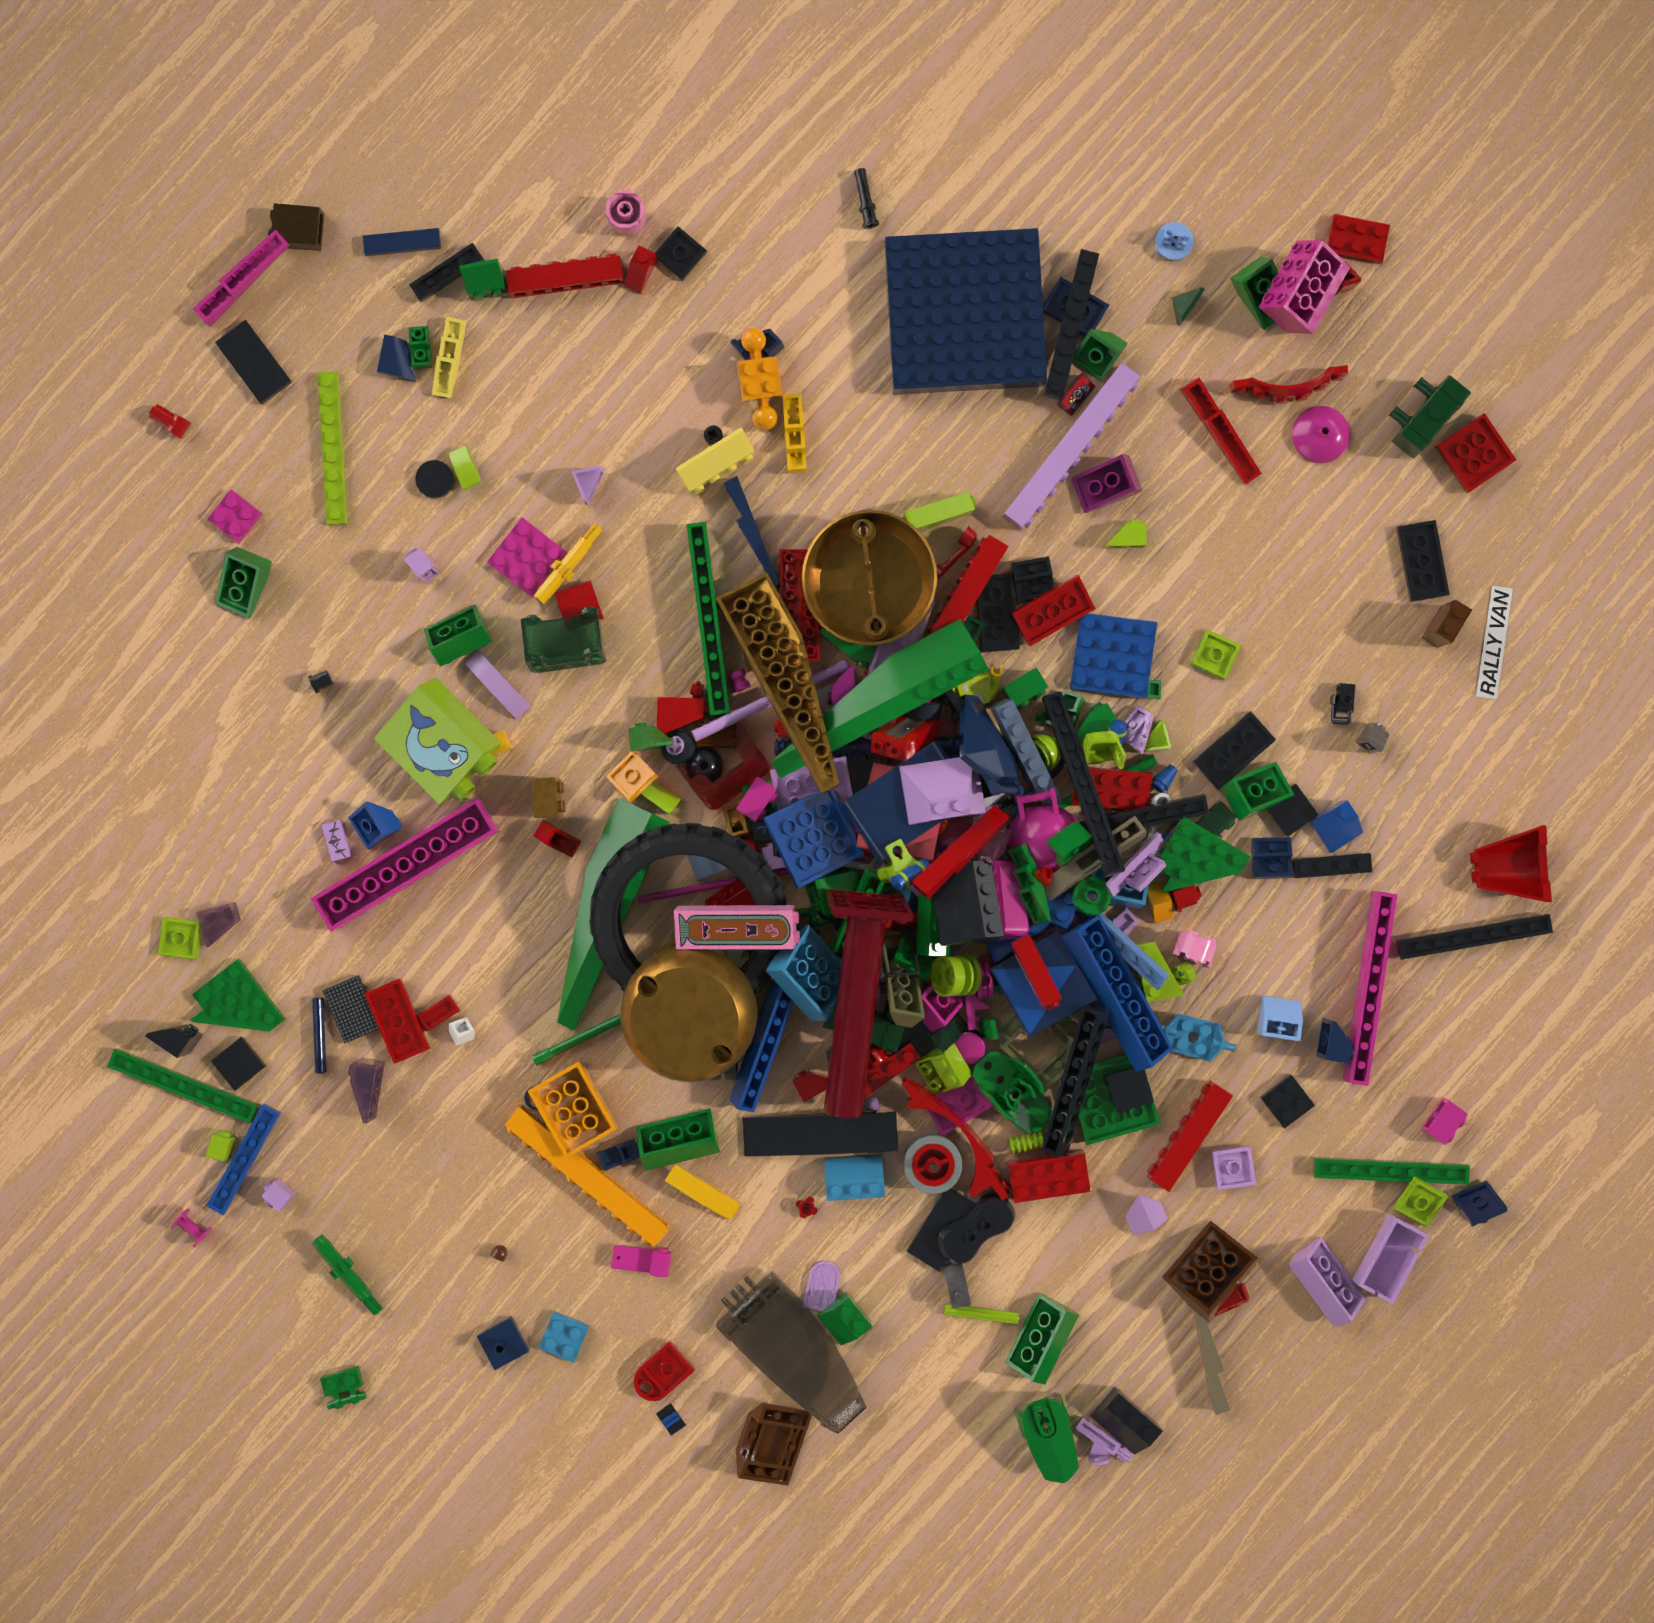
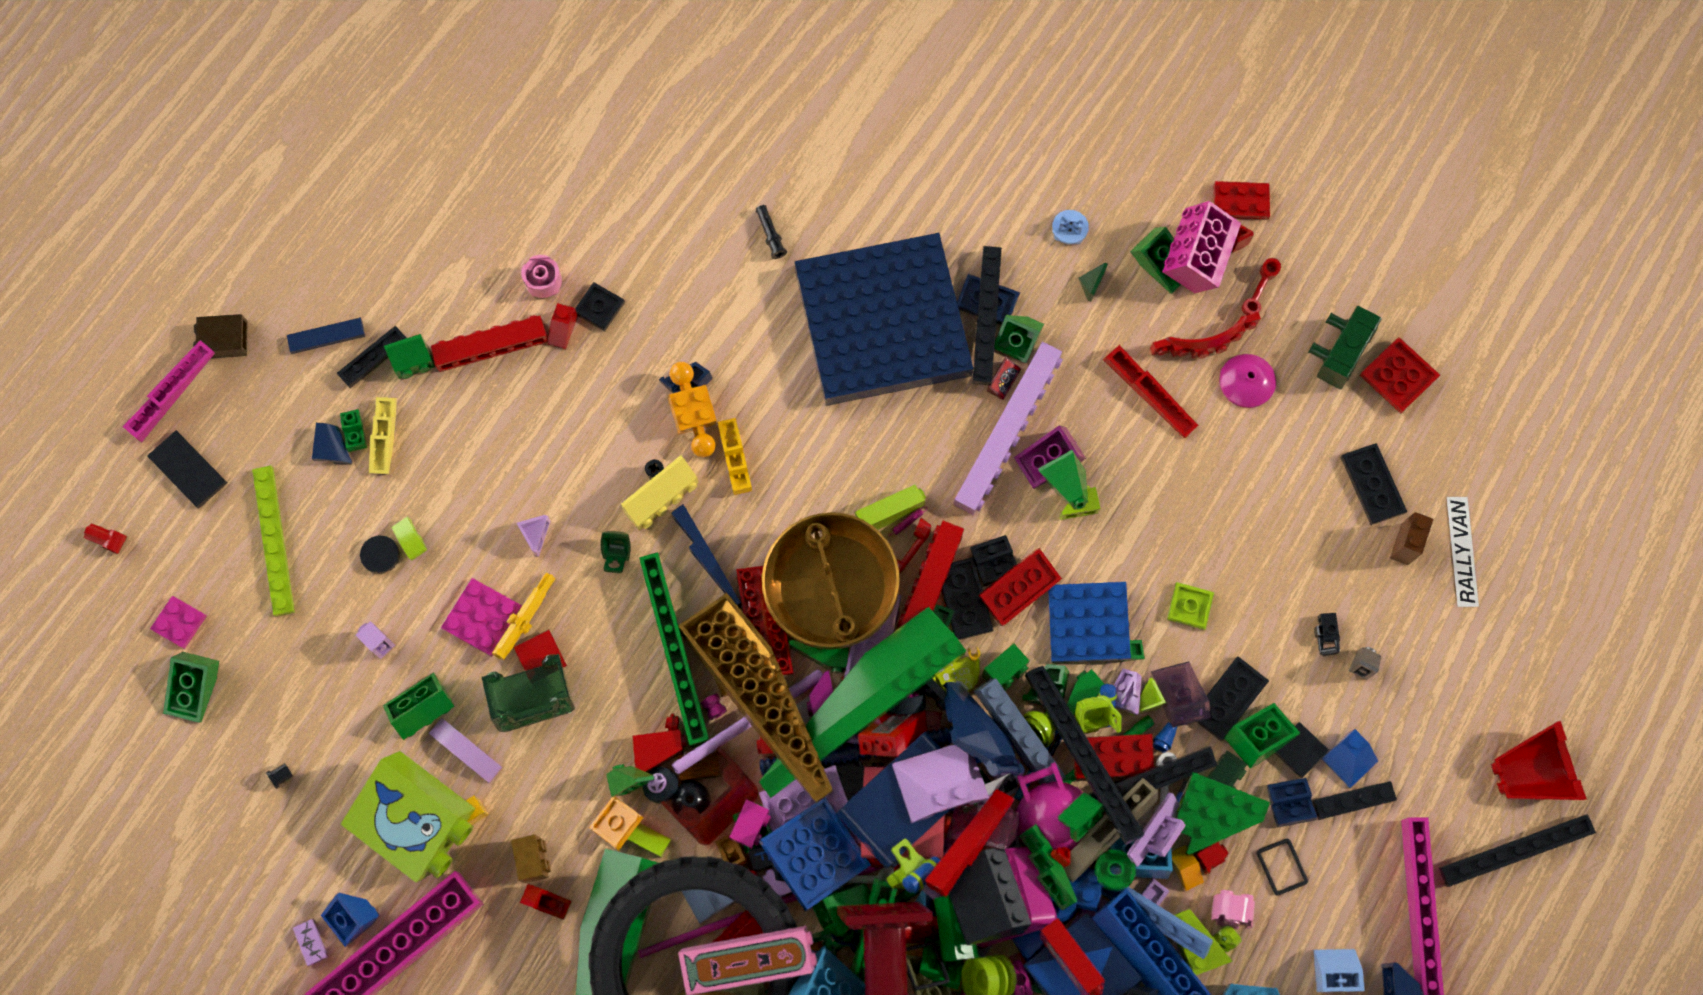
camera: 10 degrees left, 15 degrees down
(664, 508) = (615, 547): none -> dark green piece
(954, 526) = (907, 521): none -> dark pink piece
(1120, 511) = (1067, 479): none -> green slope
(1188, 740) = (1183, 694): none -> clear purple slope
(1264, 911) = (1268, 874): none -> black piece
(1343, 356) = (1268, 271): none -> red piece

